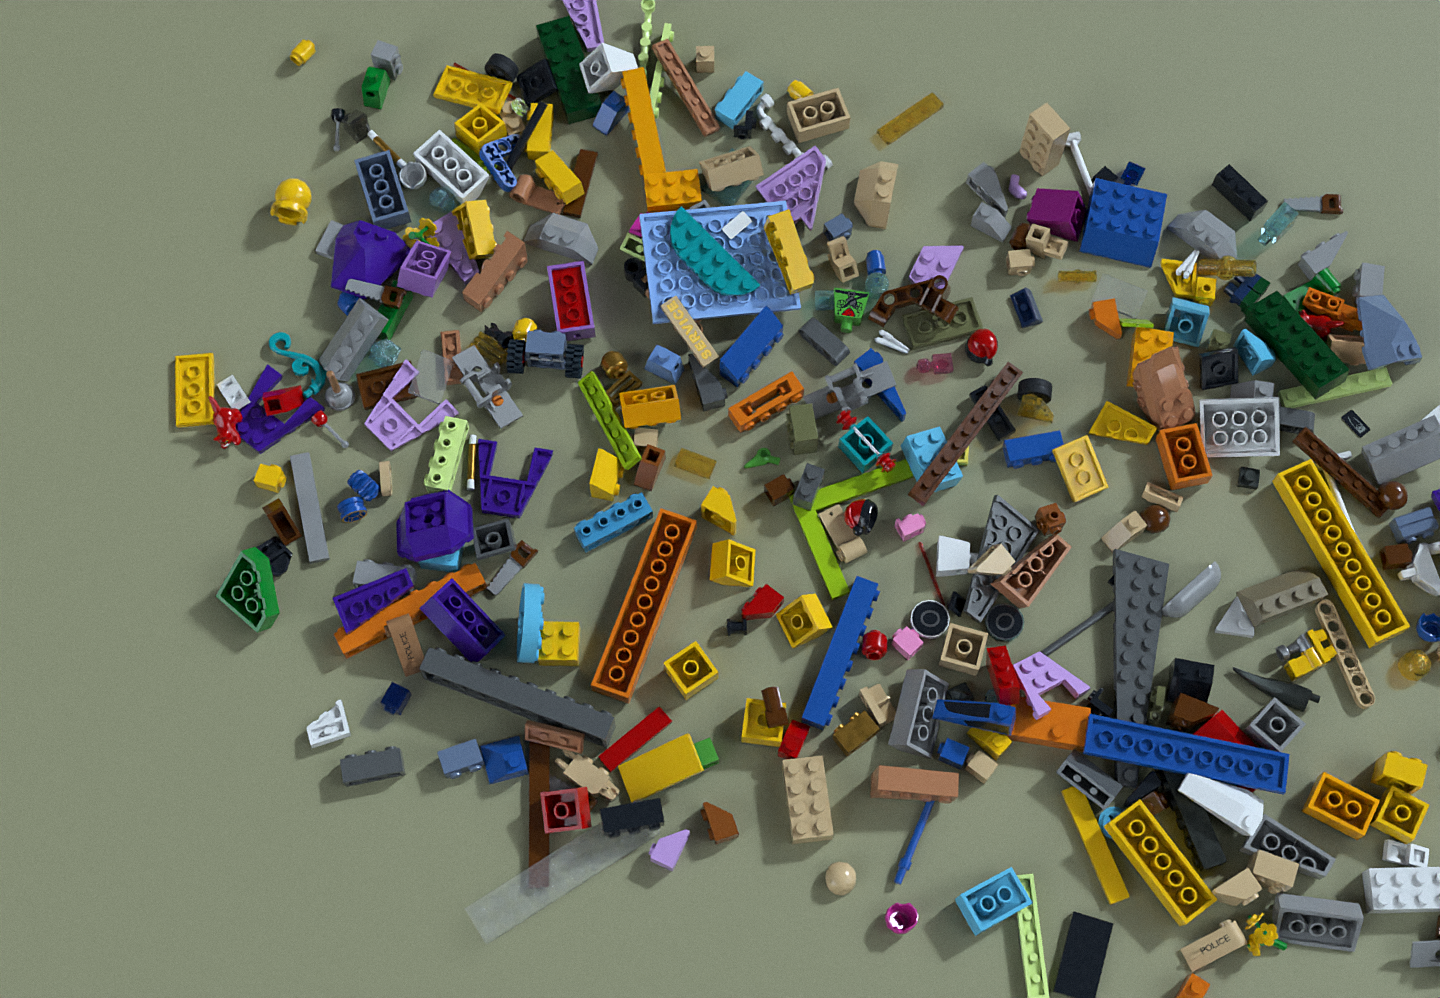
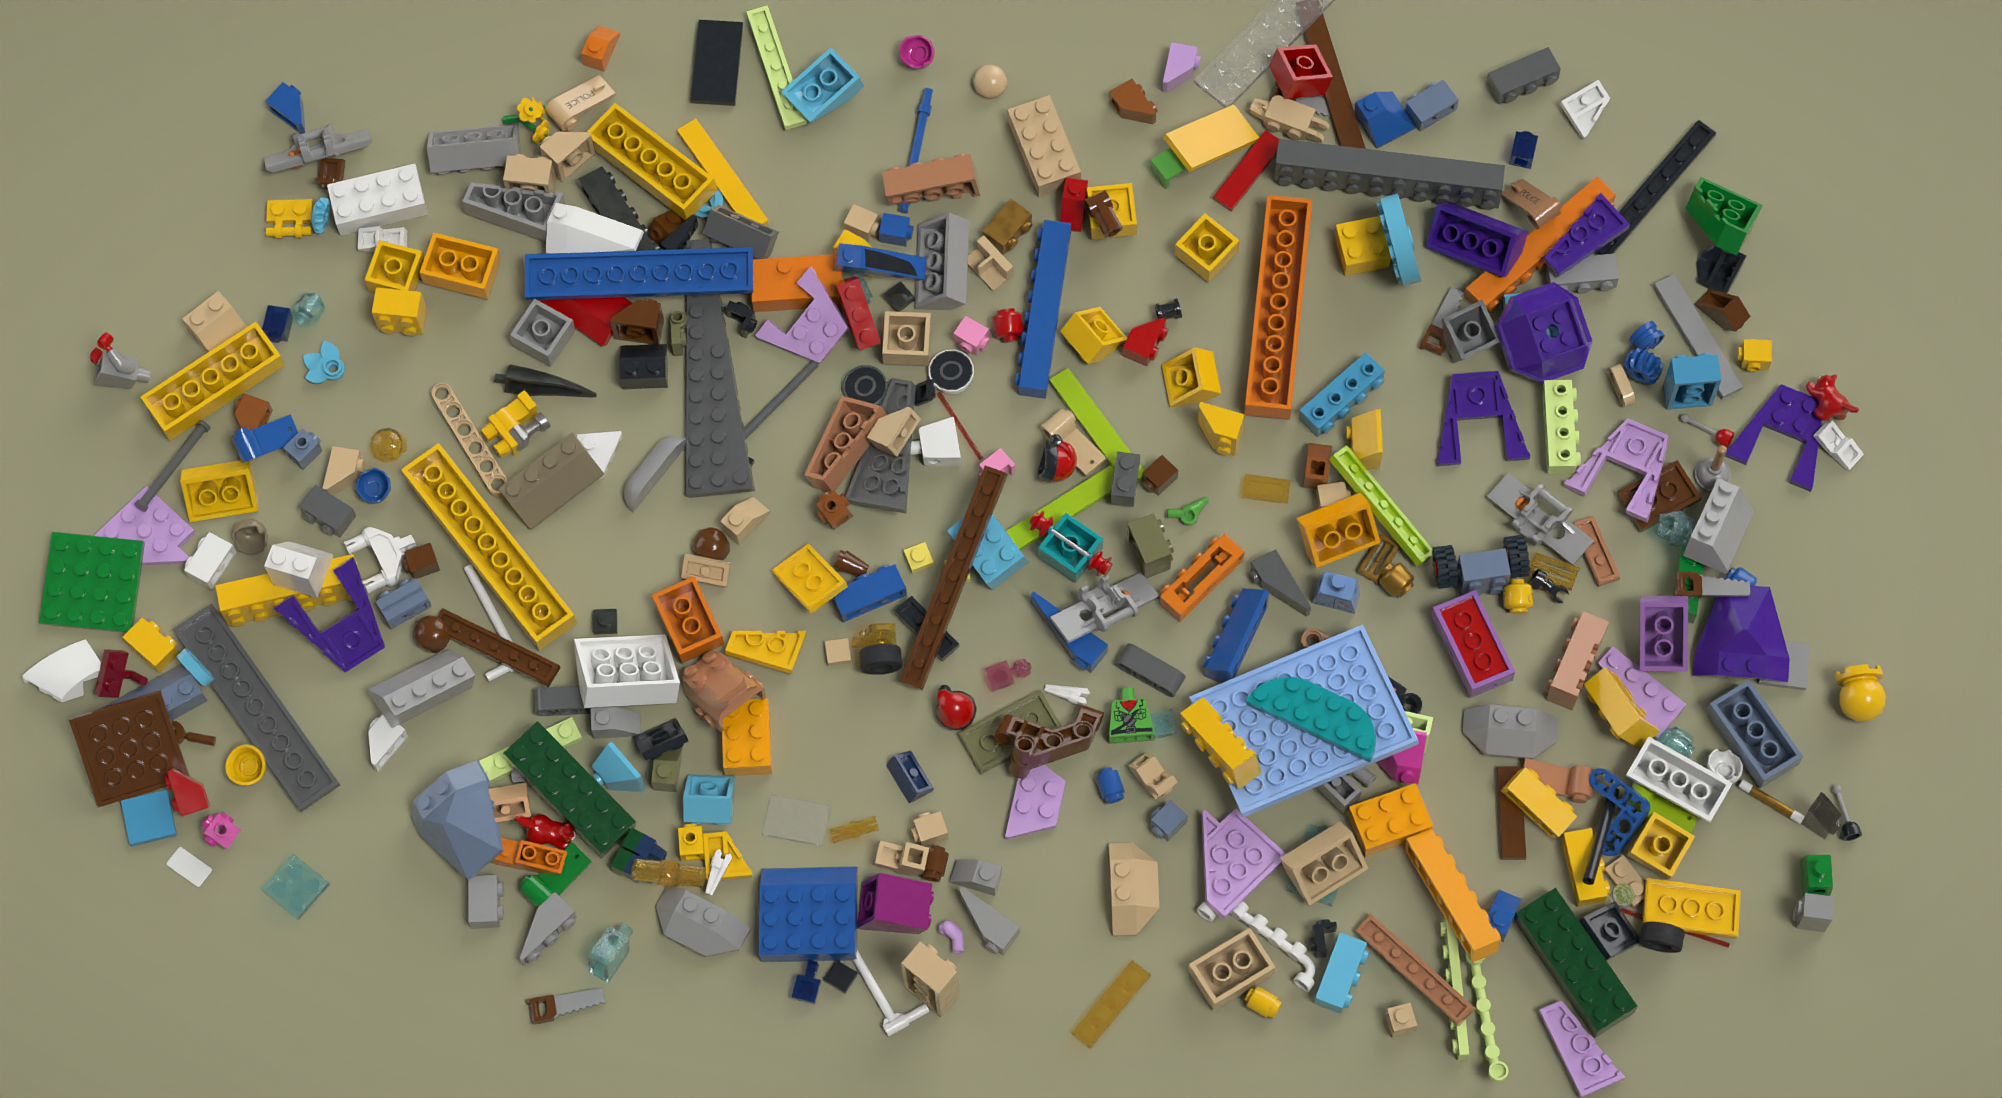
camera: 170 degrees right, 0 degrees up
(192, 388) = (1887, 442): yellow tile -> none
(282, 400) = (1776, 443): red slope -> none
(286, 650) = (1661, 181): none -> black tile
(301, 359) = (1743, 479): teal plant -> none
(302, 52) = (1930, 907): yellow brick -> none
(330, 454) = (1692, 381): none -> dark azure brick
(427, 228) = (1696, 689): yellow plant -> none
(431, 376) = (1610, 509): clear piece -> none
(471, 463) = (1529, 430): pearl gold bar -> none
(554, 736) = (1339, 140): nougat tile -> none
(605, 67) = (1520, 951): white slope -> none
(632, 818) = (1228, 78): black brick -> none
(689, 331) = (1316, 624): tan tile -> none
(737, 225) = (1294, 764): white sticker -> none
(876, 285) = (1102, 760): clear light blue head -> none
(987, 472) = (918, 557): none -> light yellow plate
(1044, 476) = (850, 564): none -> reddish brown cone
(1065, 412) = (838, 651): none -> tan tile
(1106, 317) = (809, 779): orange slope -> none
(1136, 323) = (772, 775): lime piece -> none
(1239, 192) = (664, 990): black brick -> none
(1355, 423) = (482, 722): black sticker -> none

